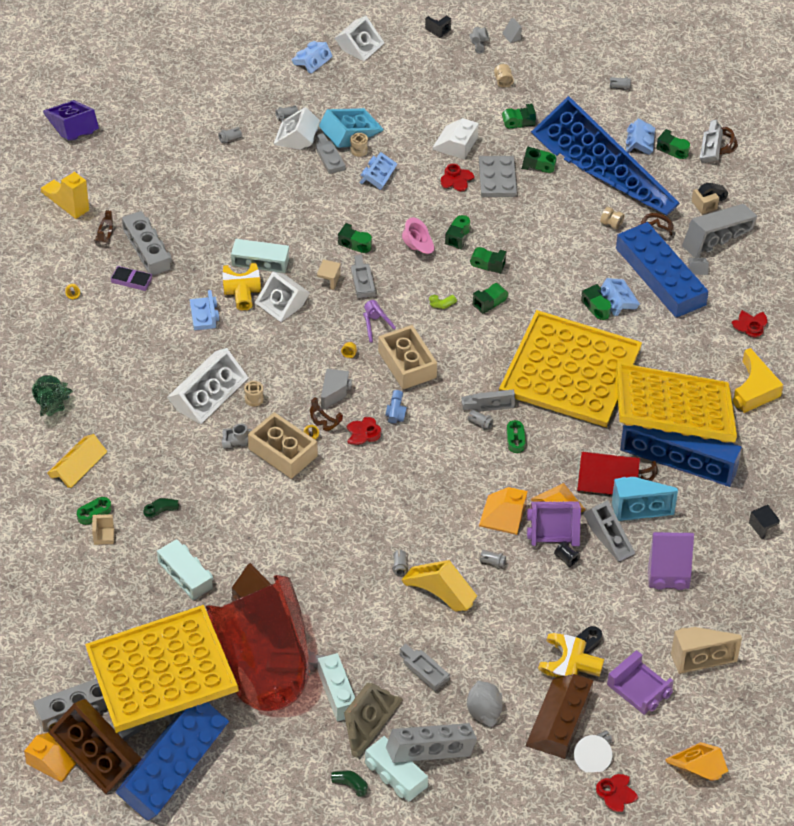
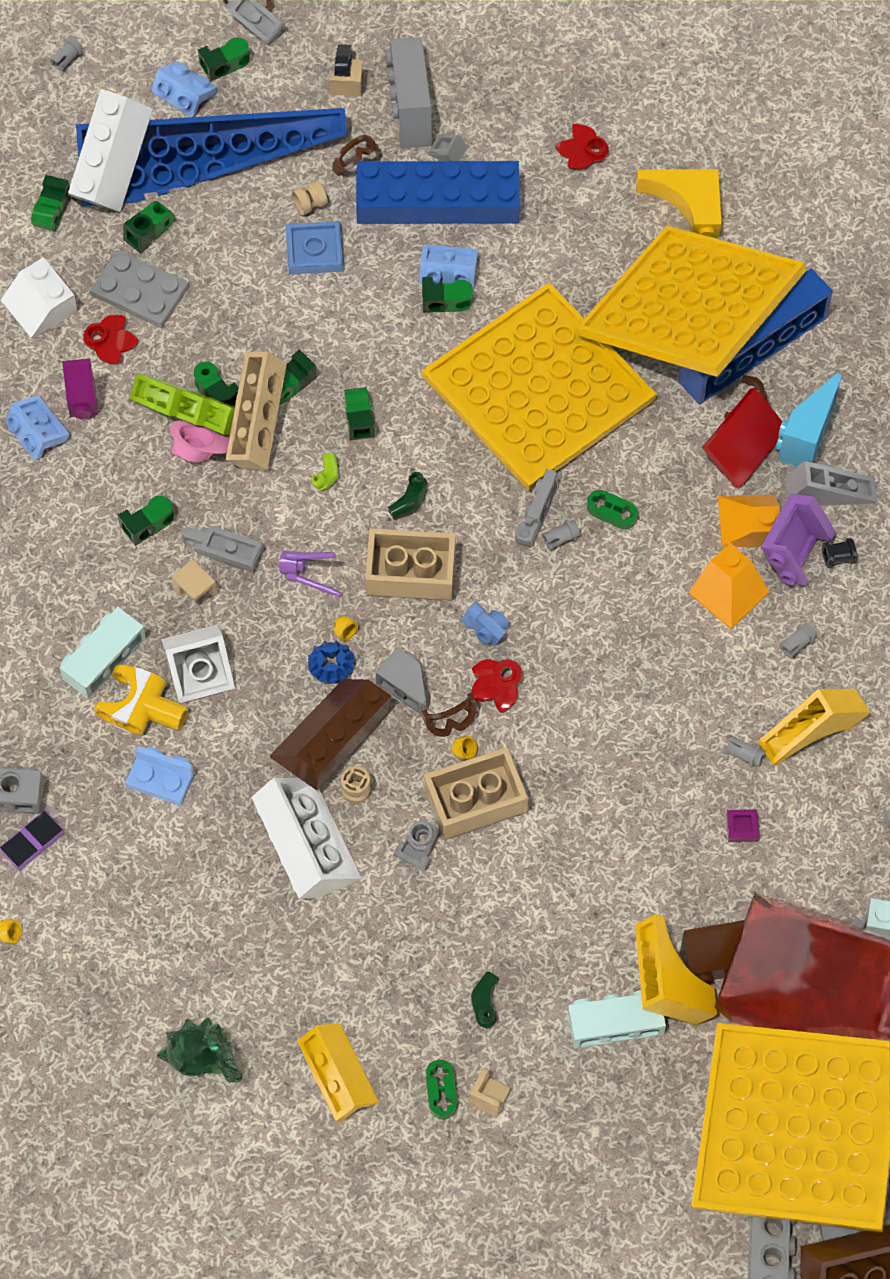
camera: 60 degrees left, 15 degrees up
(216, 575) = (666, 981): none -> yellow arch
(278, 370) = (333, 730): none -> reddish brown slope
(331, 356) = (331, 673): none -> blue gear
(349, 580) = (742, 825): none -> magenta plate
(411, 174) = (80, 388): none -> magenta slope
(436, 221) = (182, 403): none -> lime slope
(441, 246) = (256, 410): none -> tan brick
(454, 344) = (412, 498): none -> dark green arm
(564, 116) = (110, 150): none -> white slope
(583, 236) = (314, 247): none -> medium blue tile

